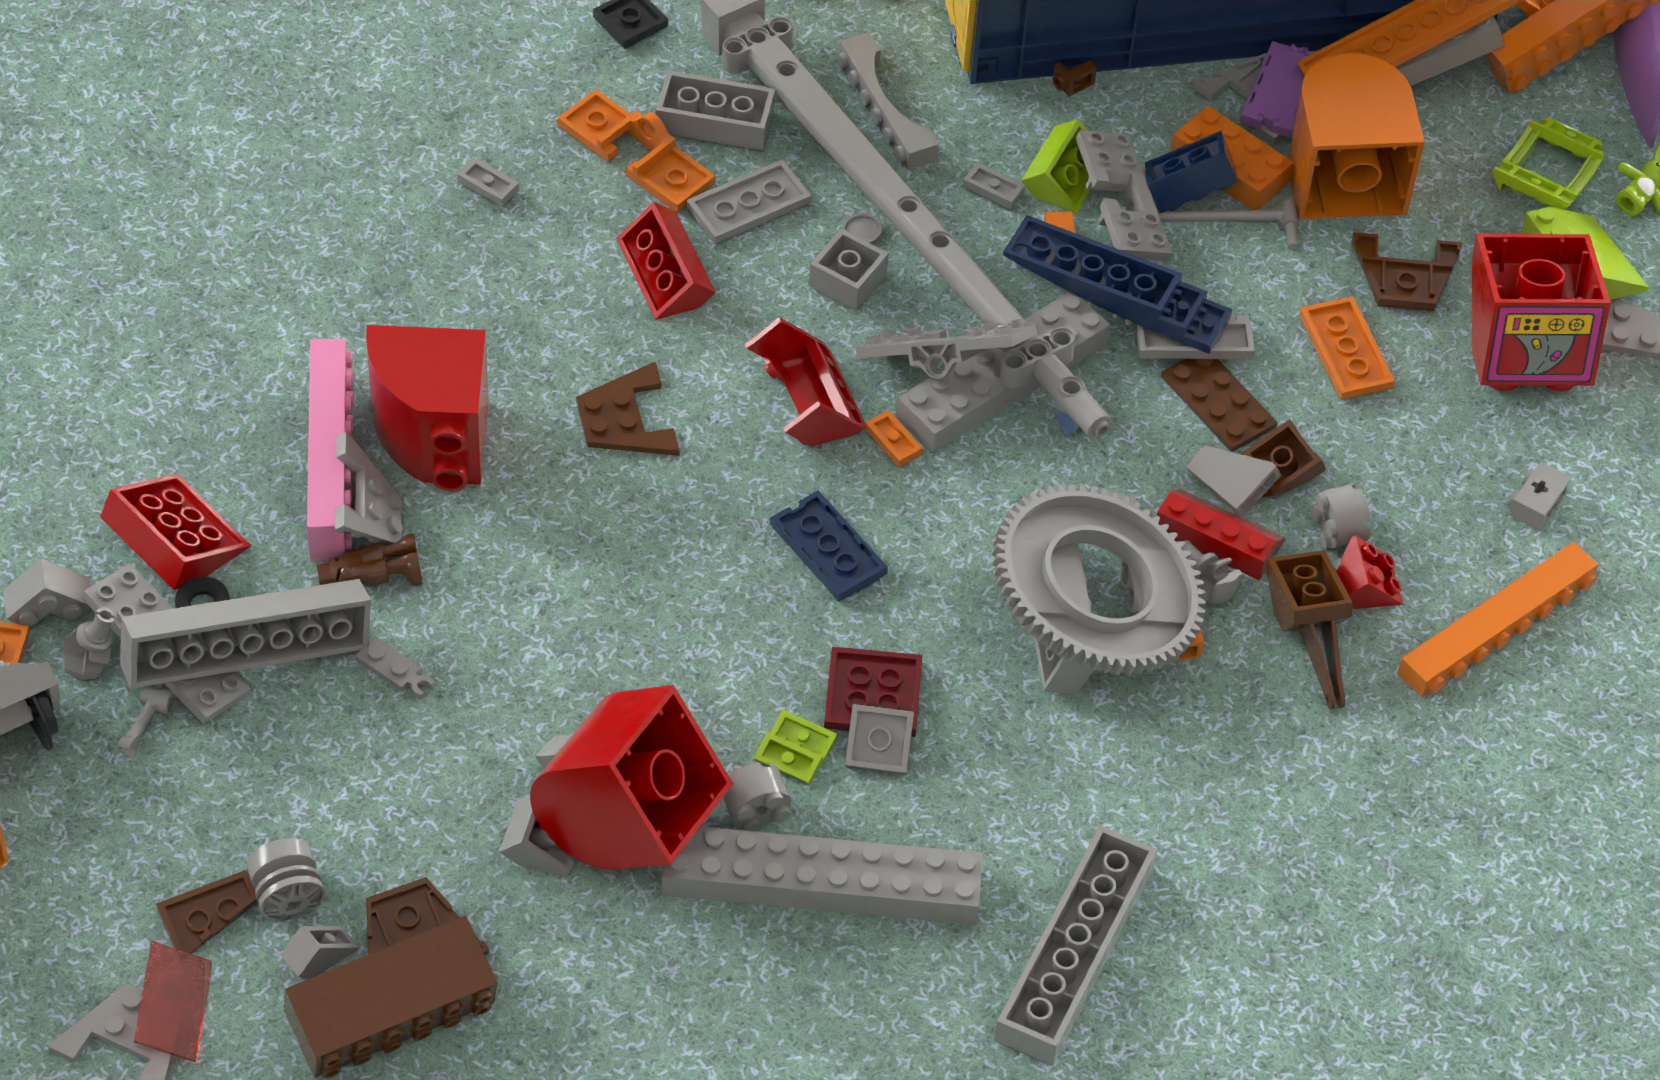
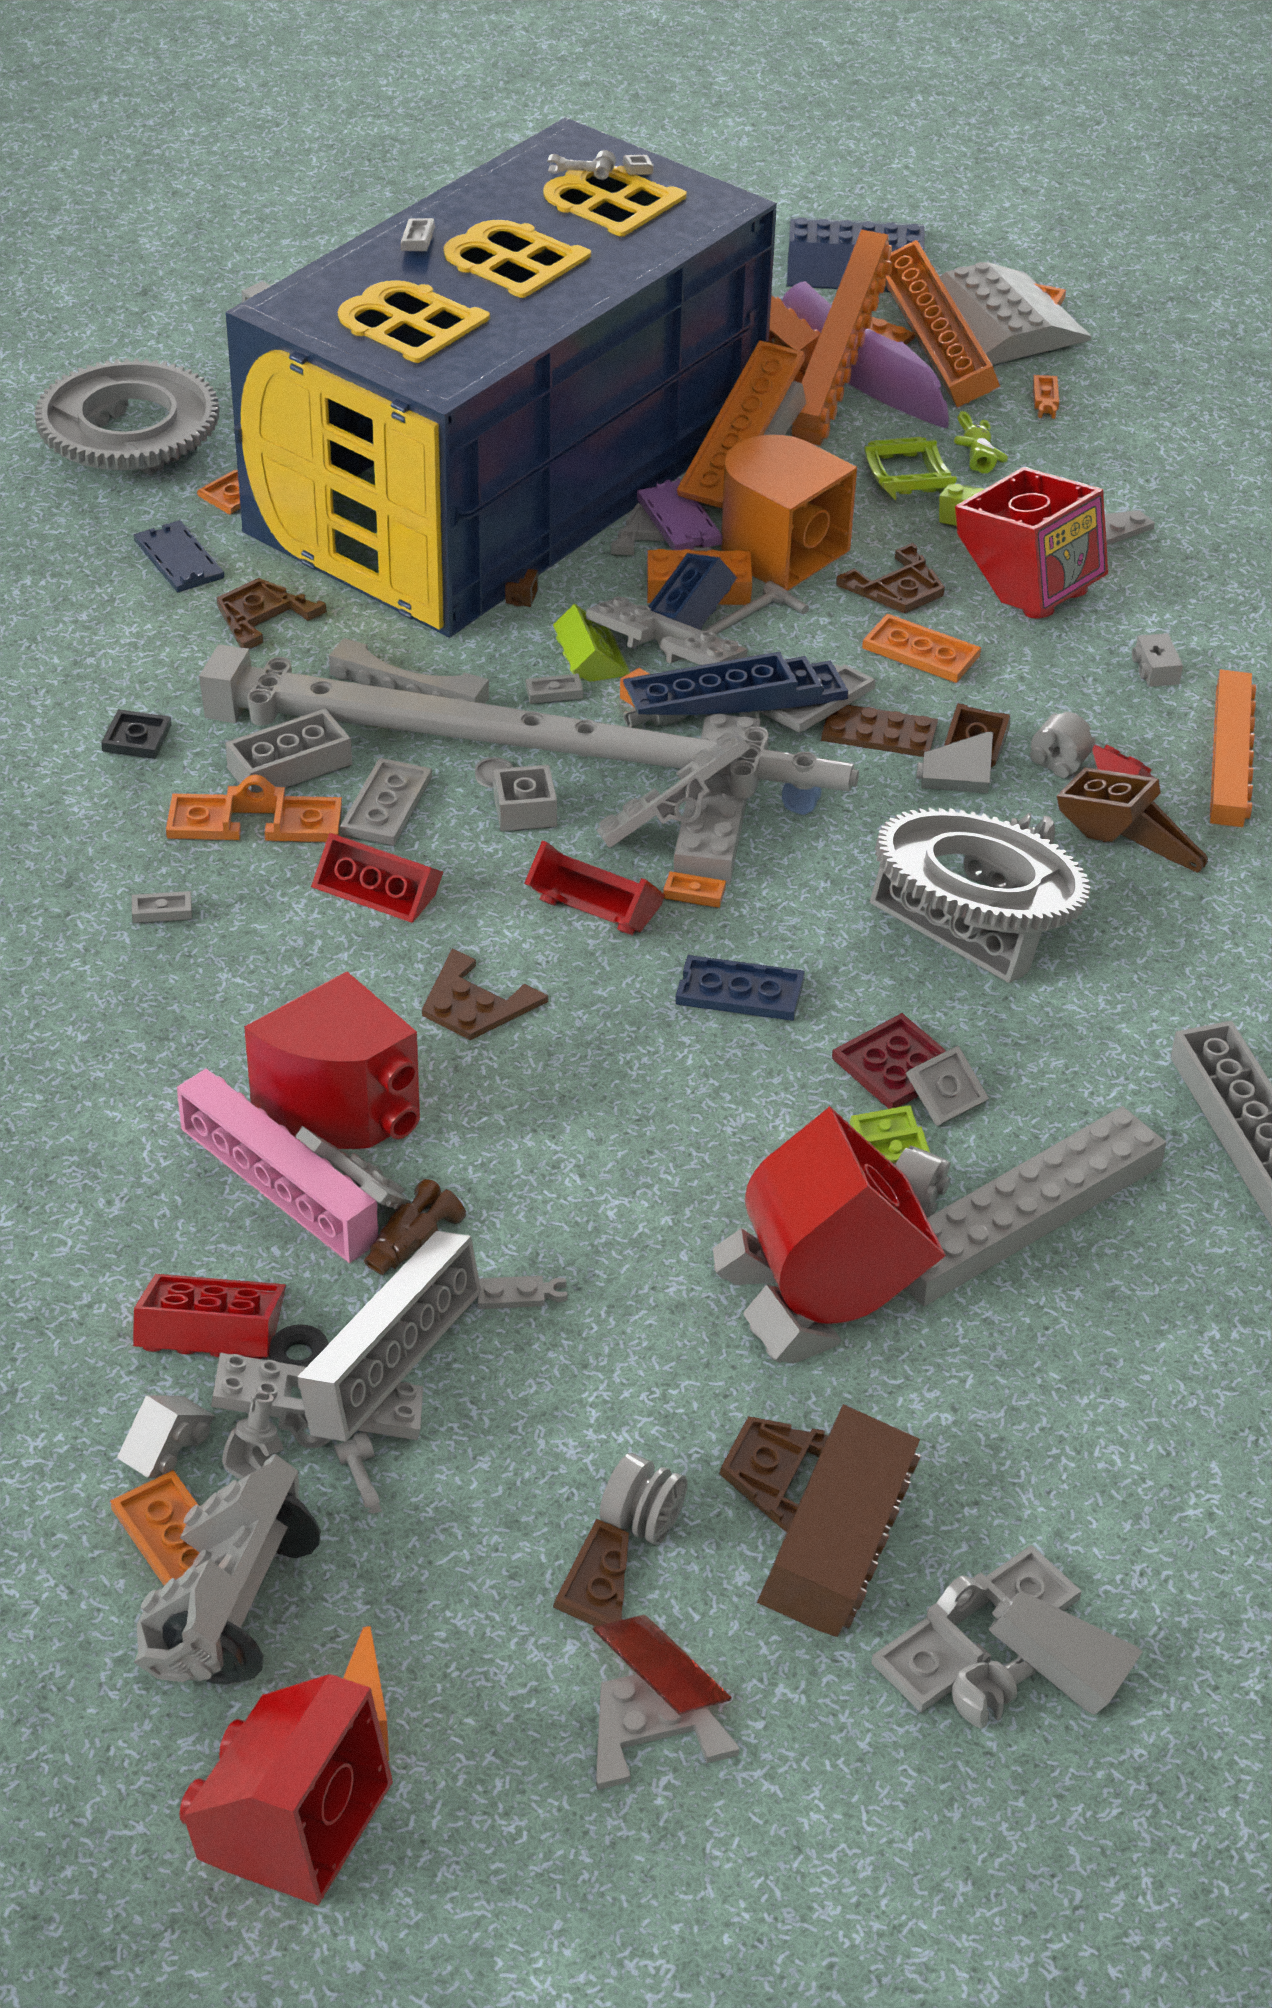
camera: 40 degrees left, 10 degrees down
(317, 949) = (726, 1539): light grey slope -> none
(1219, 532) = (1001, 802): red slope -> none

